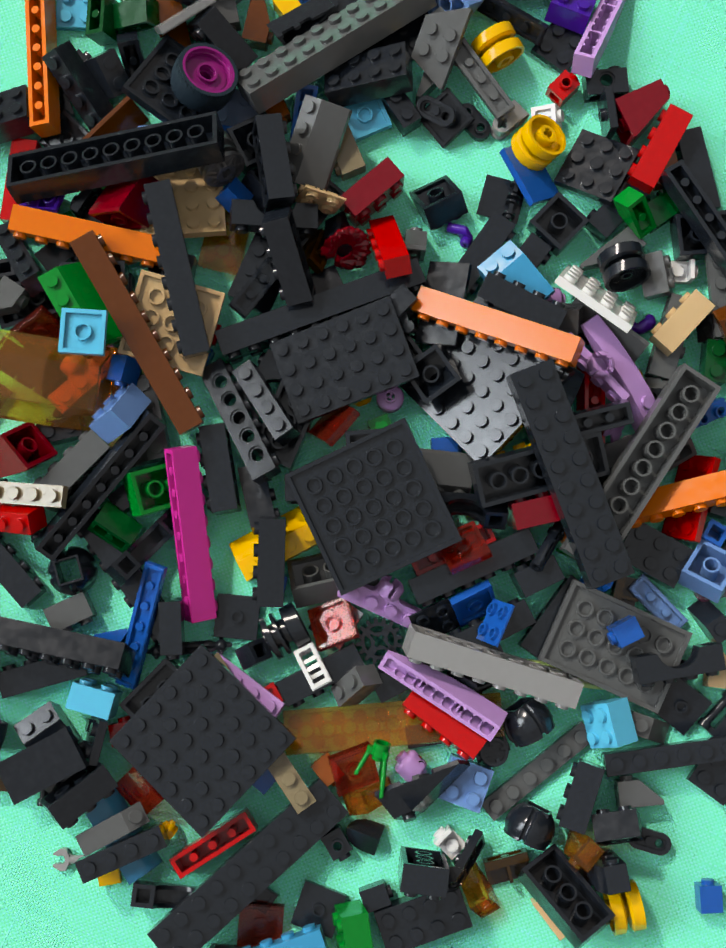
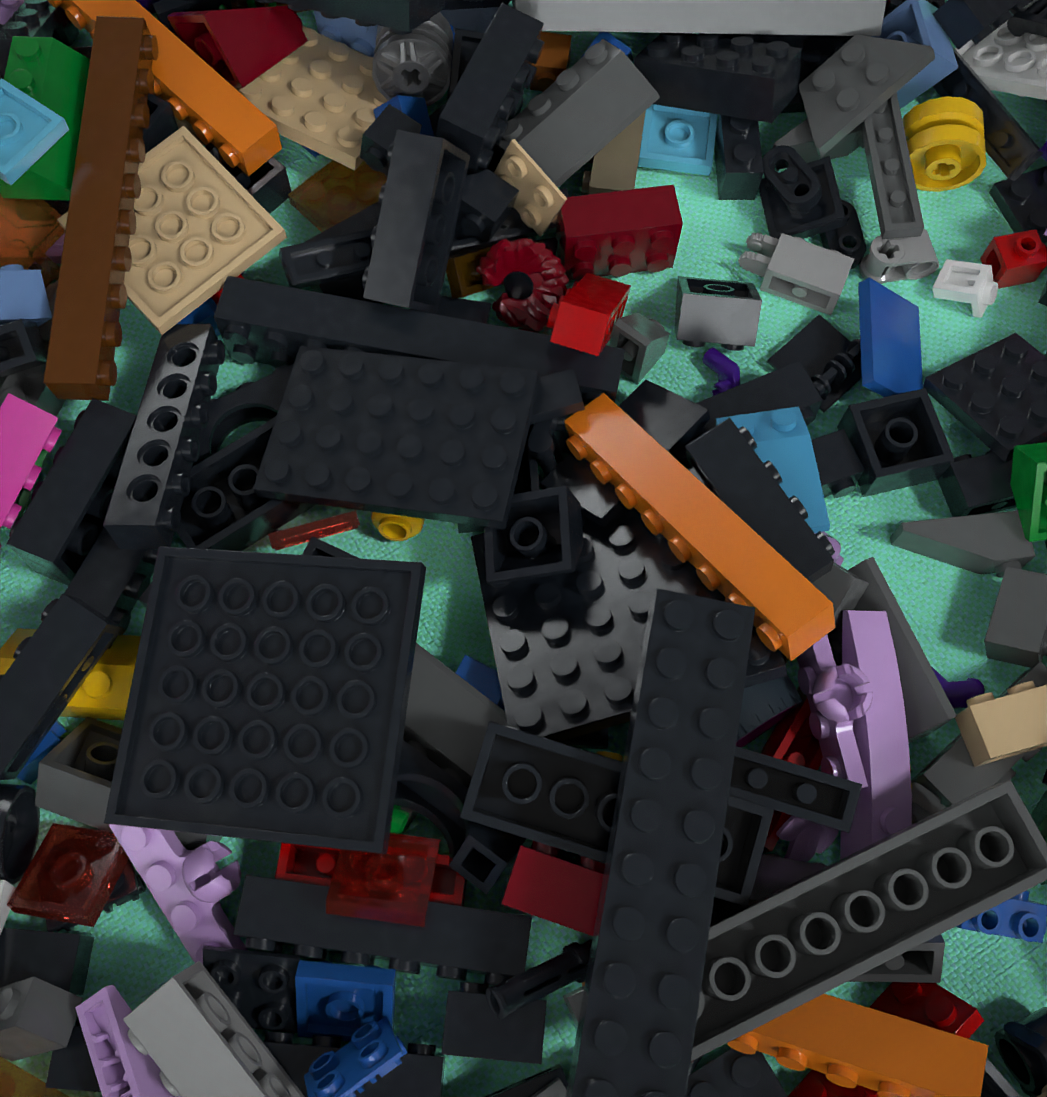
camera: 30 degrees right, 15 degrees down
(123, 370) = (46, 256): blue brick -> none
(177, 269) = (229, 152): black brick -> none
(266, 402) = (225, 428): brick -> none
(385, 632) = (125, 942): black gear -> none
(391, 405) = (442, 551): lavender head -> none
(465, 156) = (797, 270): none -> light grey hinge
(538, 142) = (932, 303): yellow wheel -> none
(597, 298) = (899, 579): white plate -> none
(623, 266) = (976, 562): black wheel -> none

